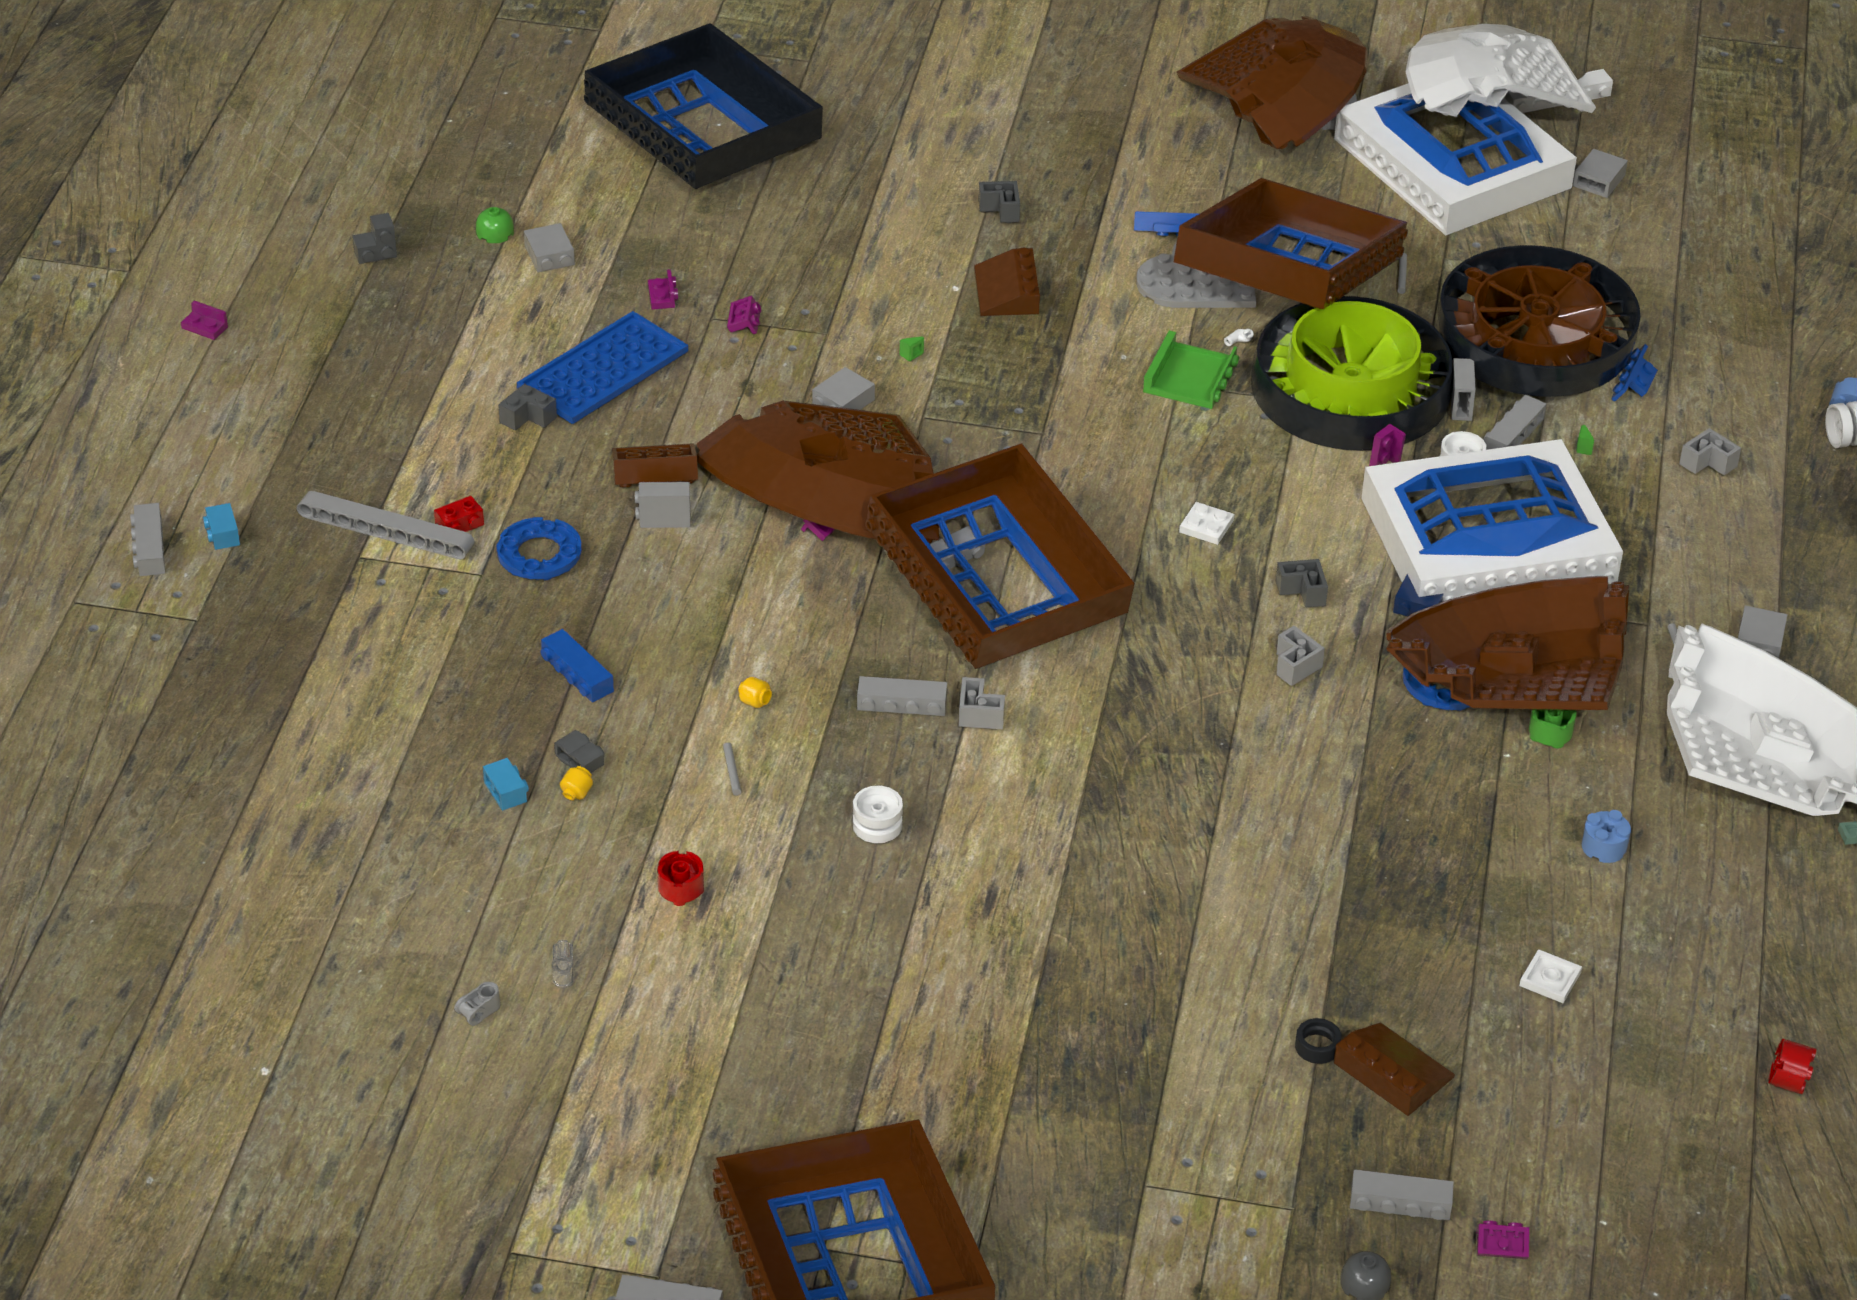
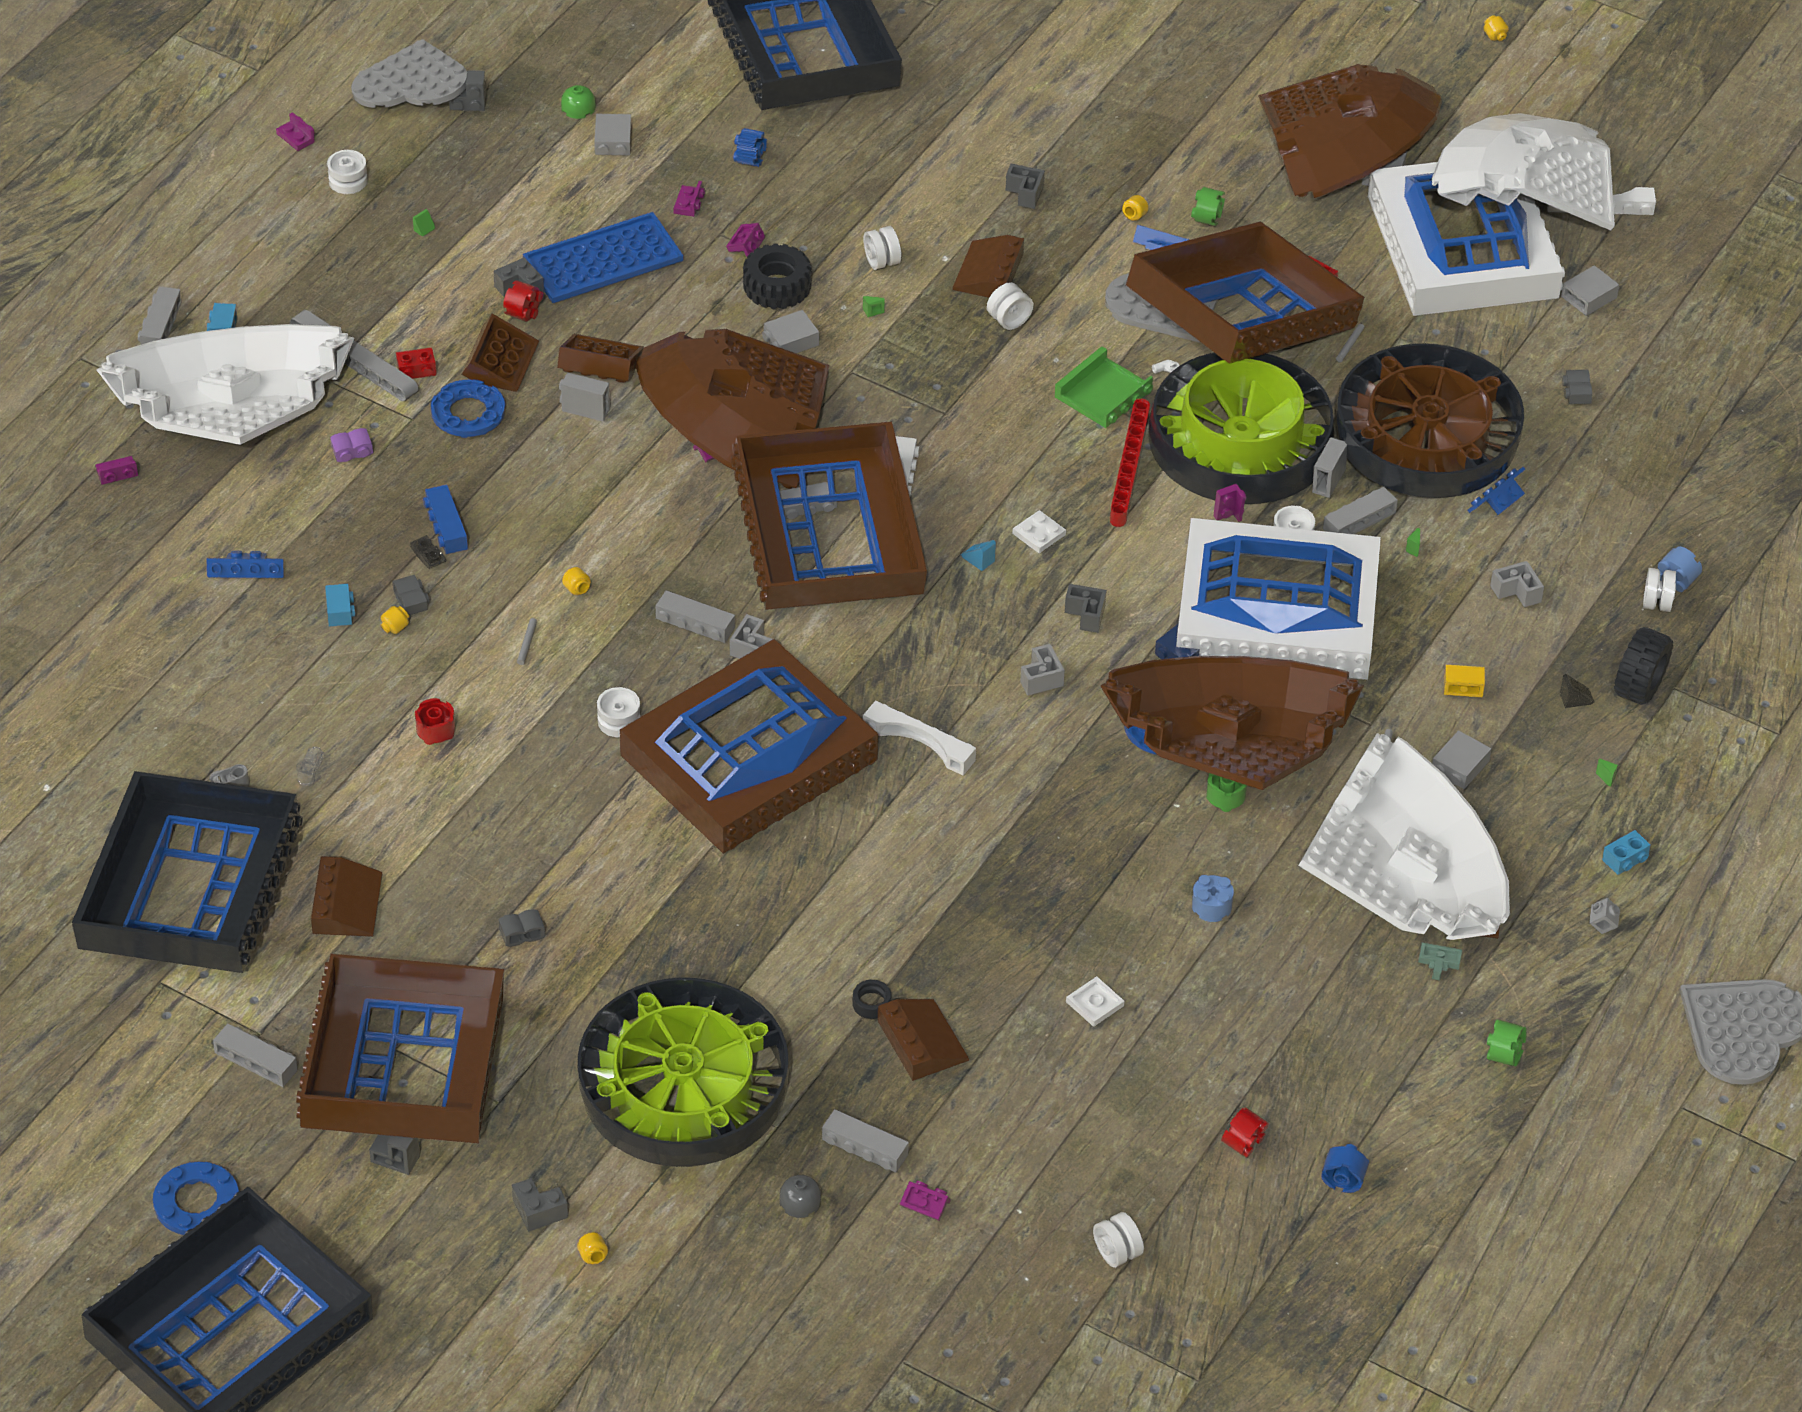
camera: 20 degrees right, 5 degrees up
(176, 706) = (116, 470): none -> magenta bracket
(263, 580) = (230, 379): none -> white panel
(283, 345) = (347, 171): none -> white wheel
(305, 237) = (411, 75): none -> light grey plate
(377, 769) = (245, 566): none -> blue bracket
(391, 377) = (423, 223): none -> bright green slope
(413, 1059) = (136, 851): none -> black panel
(431, 615) = (351, 445): none -> medium lavender brick
(544, 427) = (522, 301): none -> red brick
(545, 486) = (500, 355): none -> reddish brown slope
(572, 706) = (427, 552): none -> clear smoke slope
(679, 1097) = (345, 898): none -> reddish brown slope
(703, 226) = (750, 147): none -> blue brick
(799, 341) = (777, 261): none -> black tyre
(893, 289) = (882, 247): none -> white wheel
(896, 1072) = (521, 927): none -> dark grey brick
(1055, 314) = (1010, 306): none -> white wheel
(1081, 850) = (775, 778): none -> reddish brown panel
(1120, 197) = (1135, 207): none -> yellow head
(1162, 559) = (981, 554): none -> dark azure slope
(1165, 749) = (887, 721): none -> white arch
(1194, 178) = (1208, 206): none -> bright green brick
(1202, 1149) = (699, 1053): none -> piece
(1260, 435) = (1129, 463): none -> red beam
(1645, 261) = (1578, 386): none -> dark grey brick
(1717, 557) = (1467, 680): none -> yellow brick
(1736, 1219) = (1118, 1239): none -> white wheel
(1824, 543) = (1574, 693): none -> clear smoke slope

